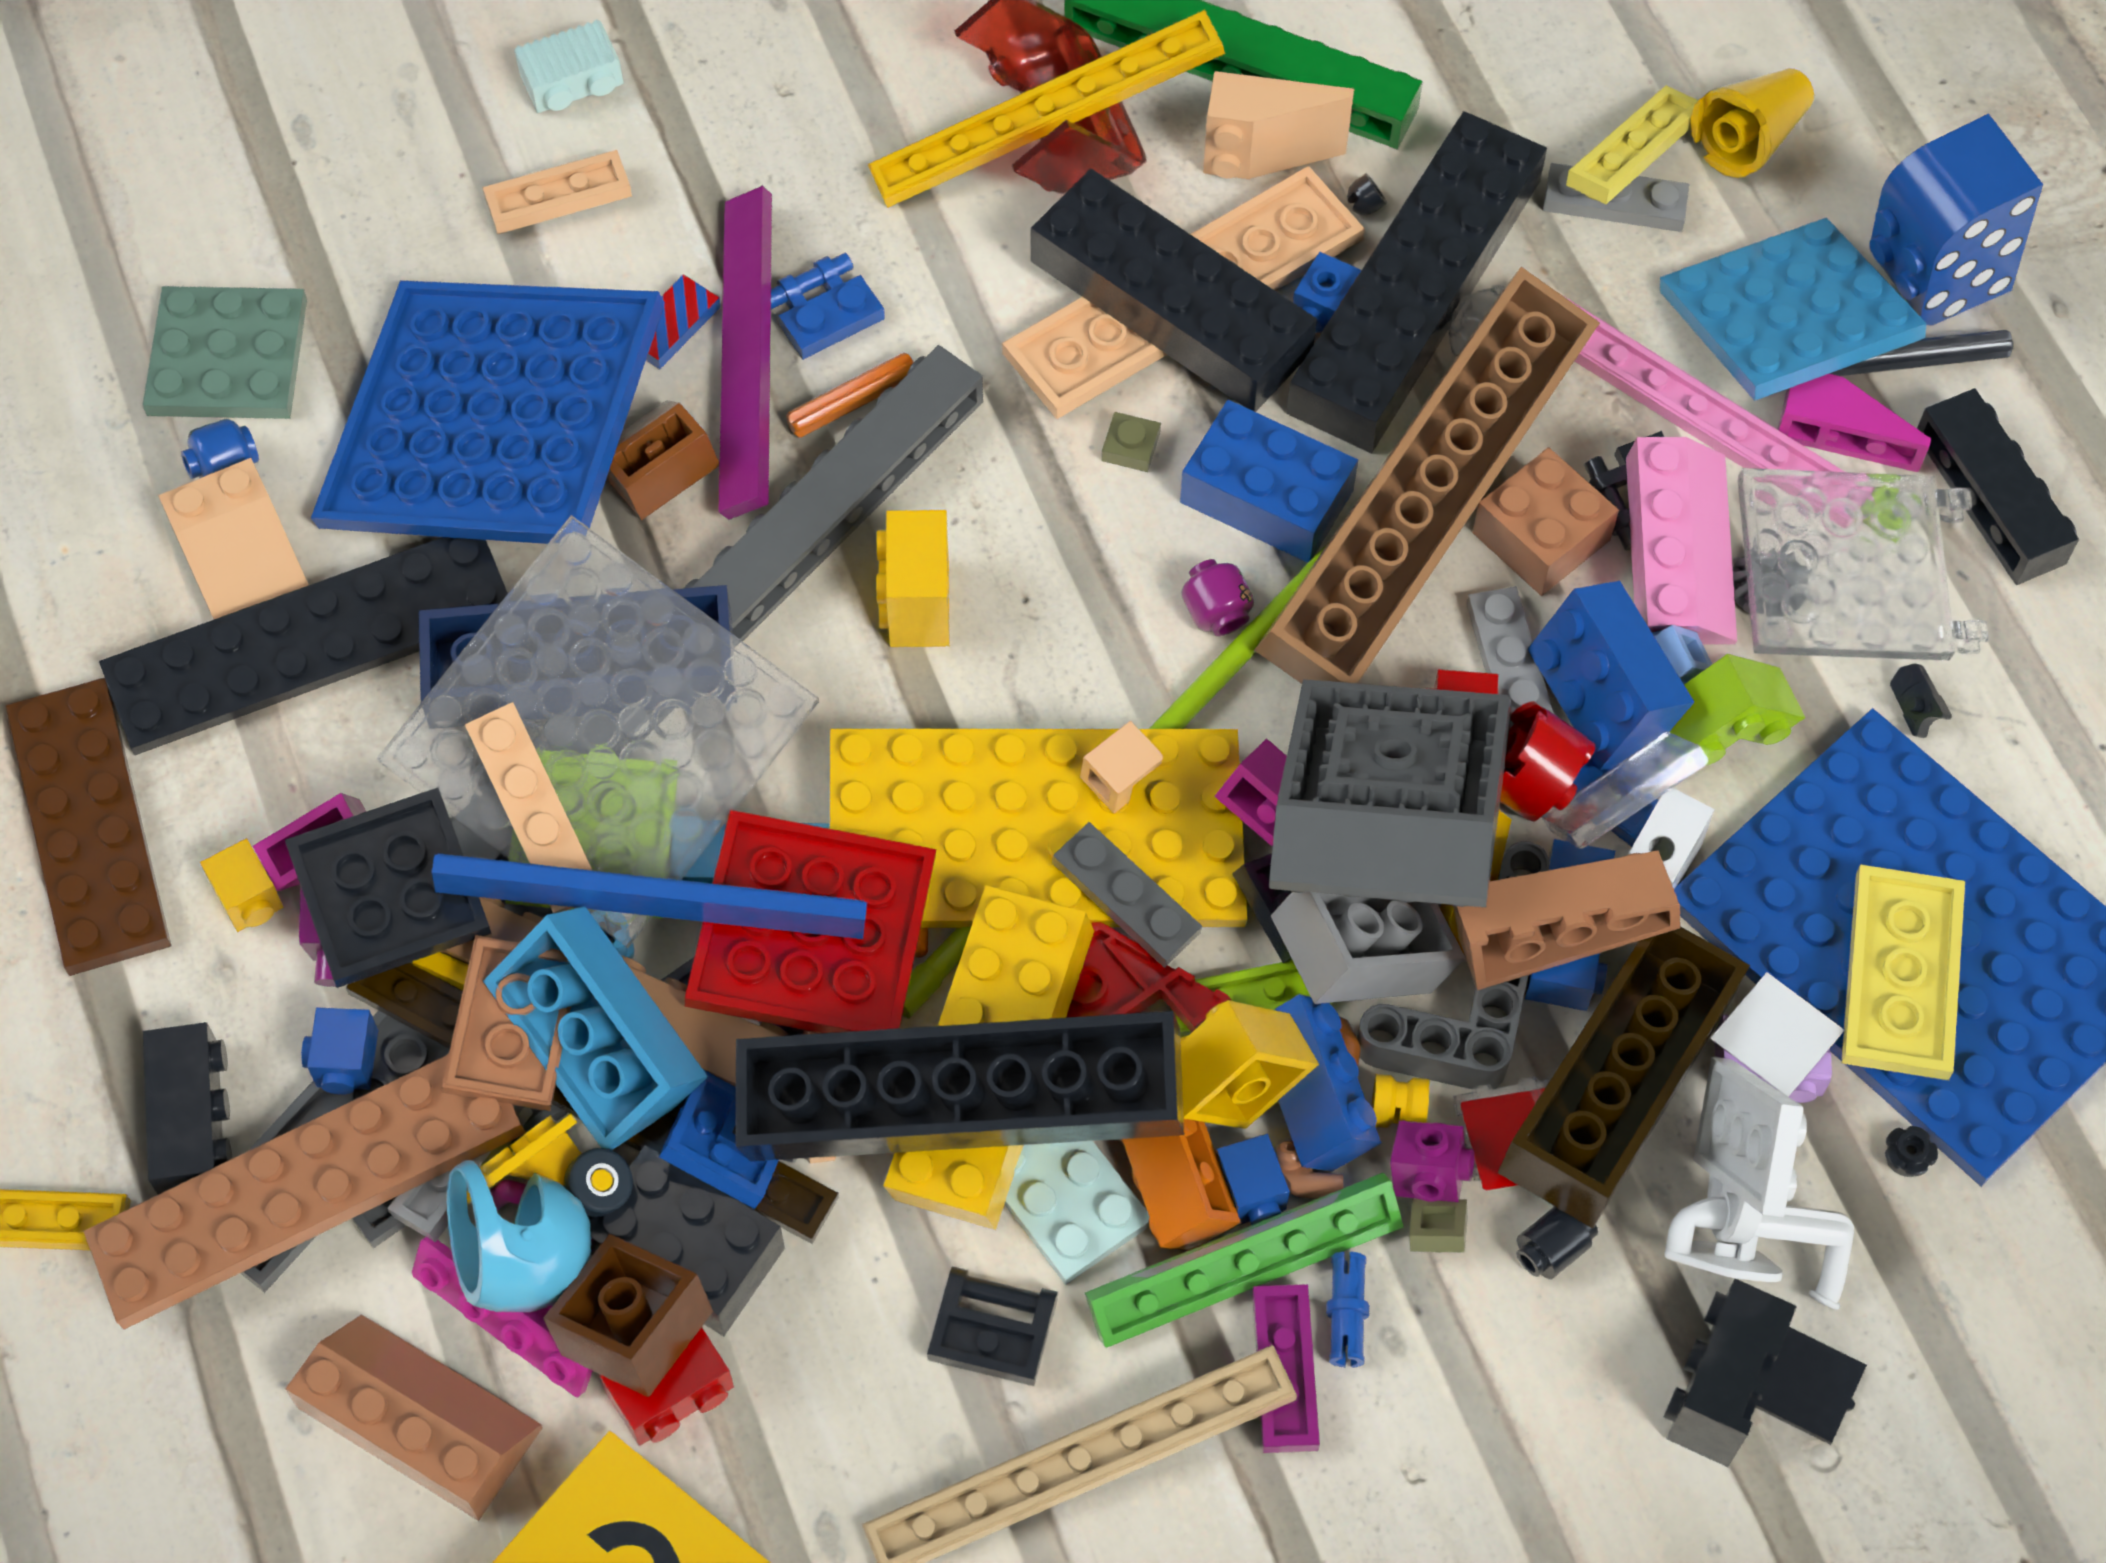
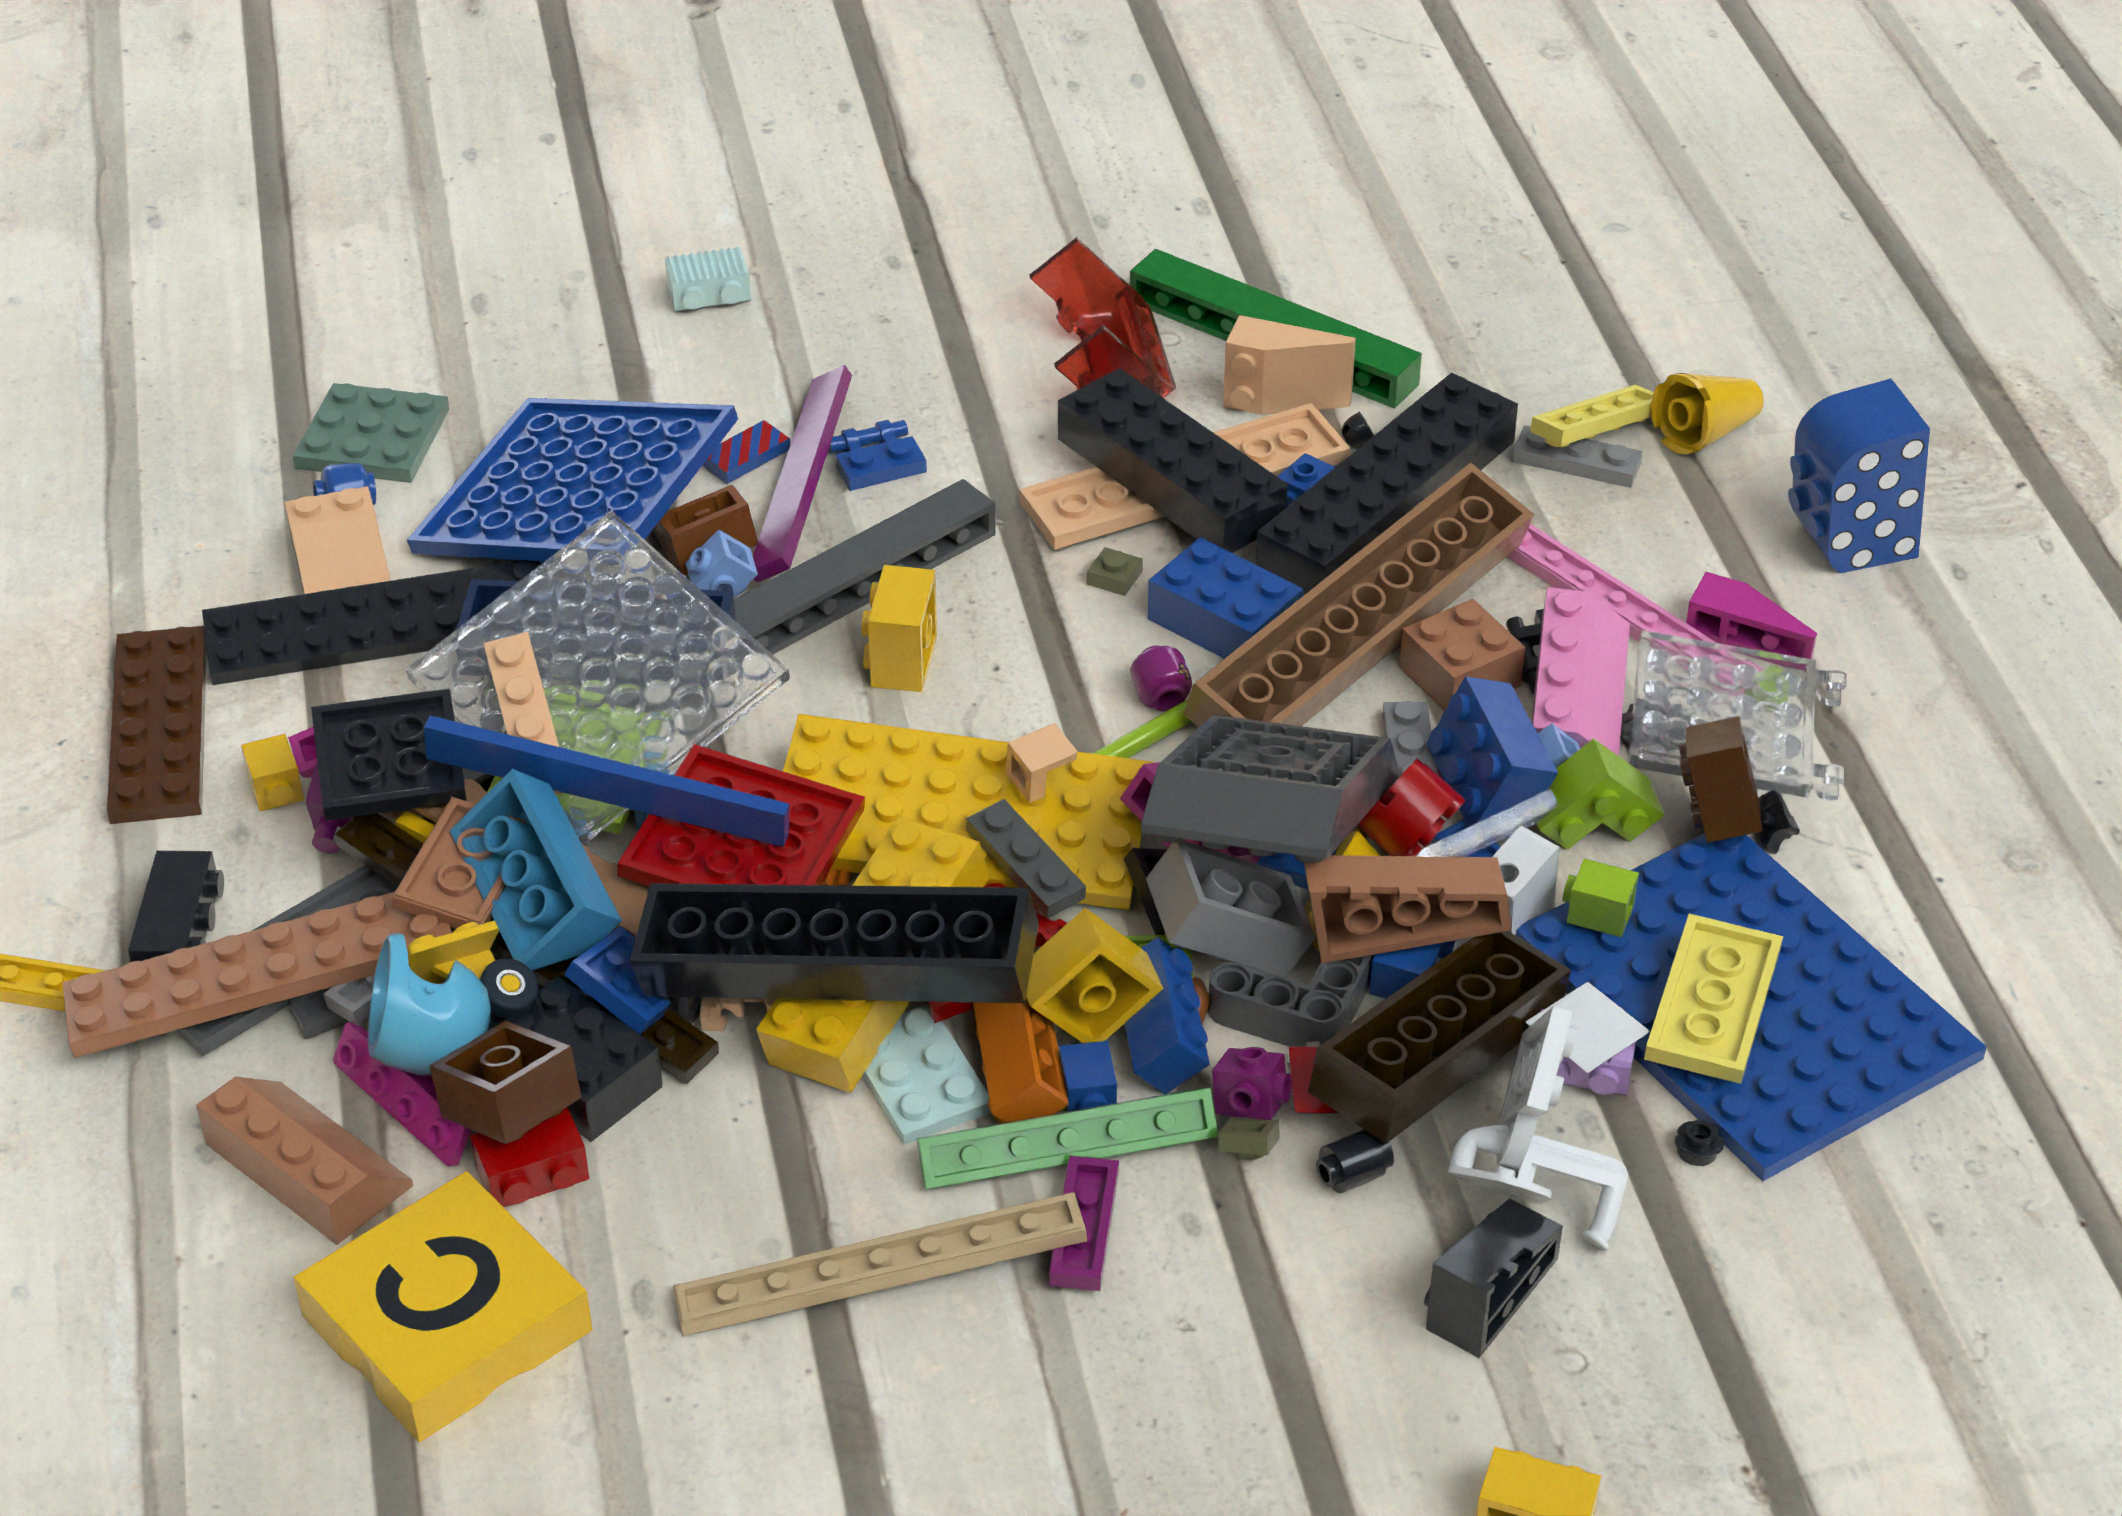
camera: 10 degrees right, 20 degrees down
(341, 1049) = (318, 878): blue brick -> none
(557, 191) = (674, 357): light nougat plate -> none
(688, 514) = (722, 565): none -> light blue brick
(848, 396) = (862, 518): orange axle -> none
(988, 1341) = (824, 1168): black plate -> none
(1045, 108) = (1131, 327): yellow tile -> none
(1304, 1181) = (1131, 1085): nougat arm -> none
(1347, 1309) = (1152, 1189): blue pin -> none
(1399, 1100) = (1227, 1034): yellow wheel -> none
(1761, 853) = (1601, 897): none -> lime brick
(1792, 308) = (1712, 536): dark azure plate -> none
(1811, 1386) = (1569, 1306): black piece -> none
(1866, 675) = (1722, 780): none -> reddish brown brick
(1938, 352) = (1828, 586): black axle -> none
(2006, 496) = (1878, 682): black brick -> none

